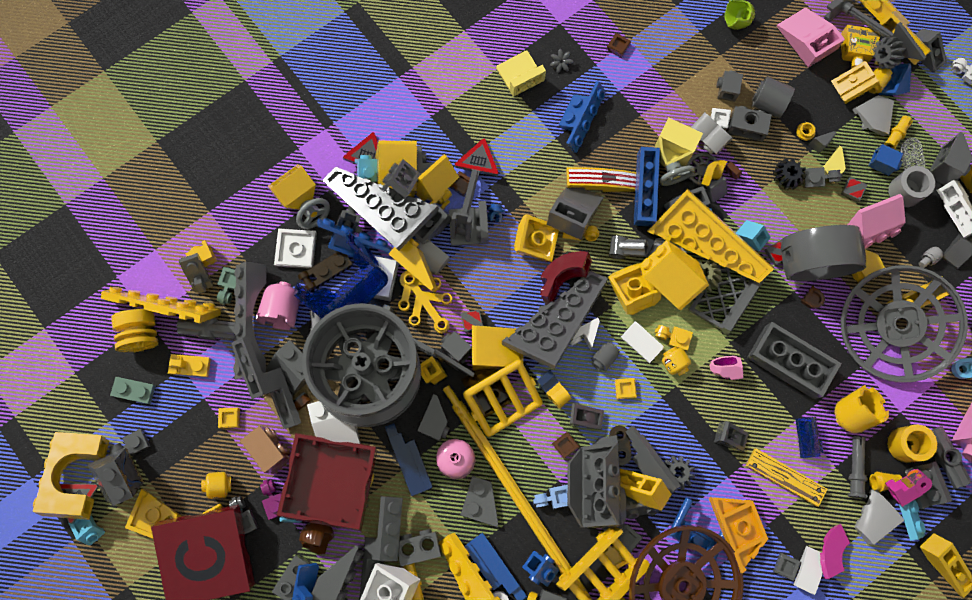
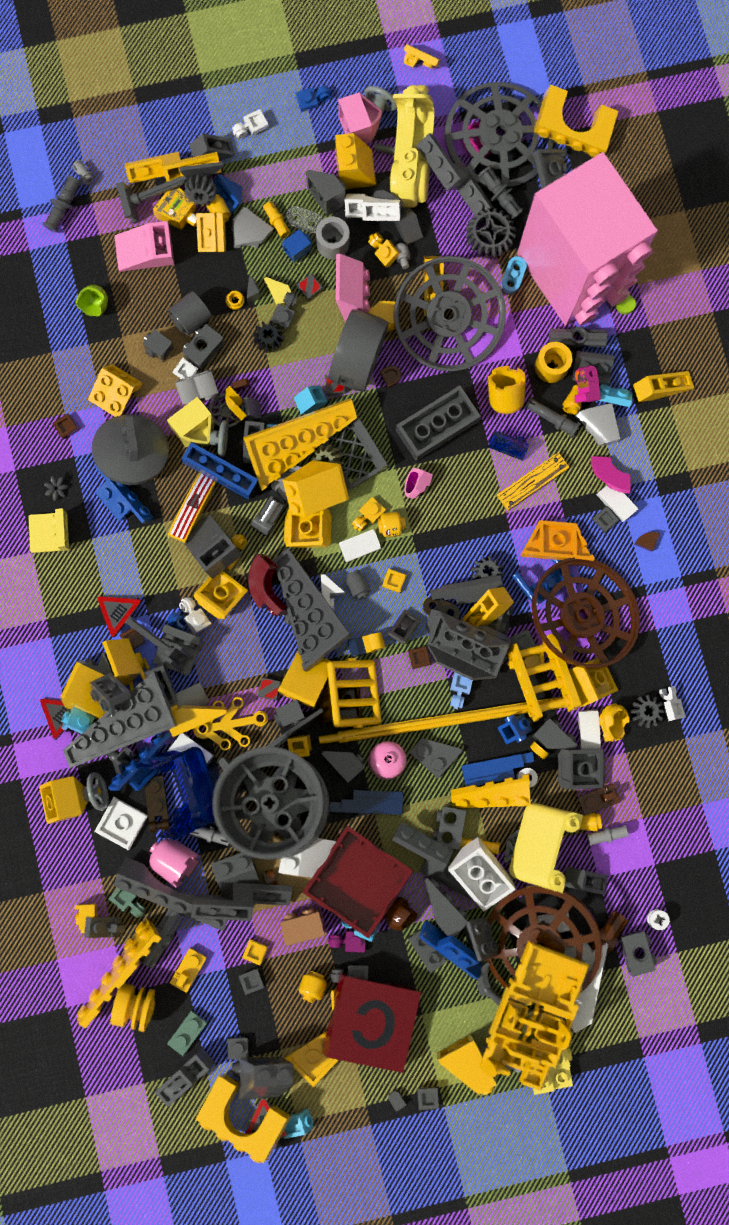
camera: 70 degrees left, 5 degrees up
(91, 406) = (185, 1077): none -> dark grey slope
(200, 426) = (251, 981): none -> dark grey plate
(503, 228) = (196, 619): none -> white plate
(626, 103) = (130, 449): none -> dark grey bracket
(671, 67) = (113, 389): none -> yellow bracket
(731, 436) = (477, 510): dark grey slope -> none
(926, 241) = (387, 251): none -> yellow plate

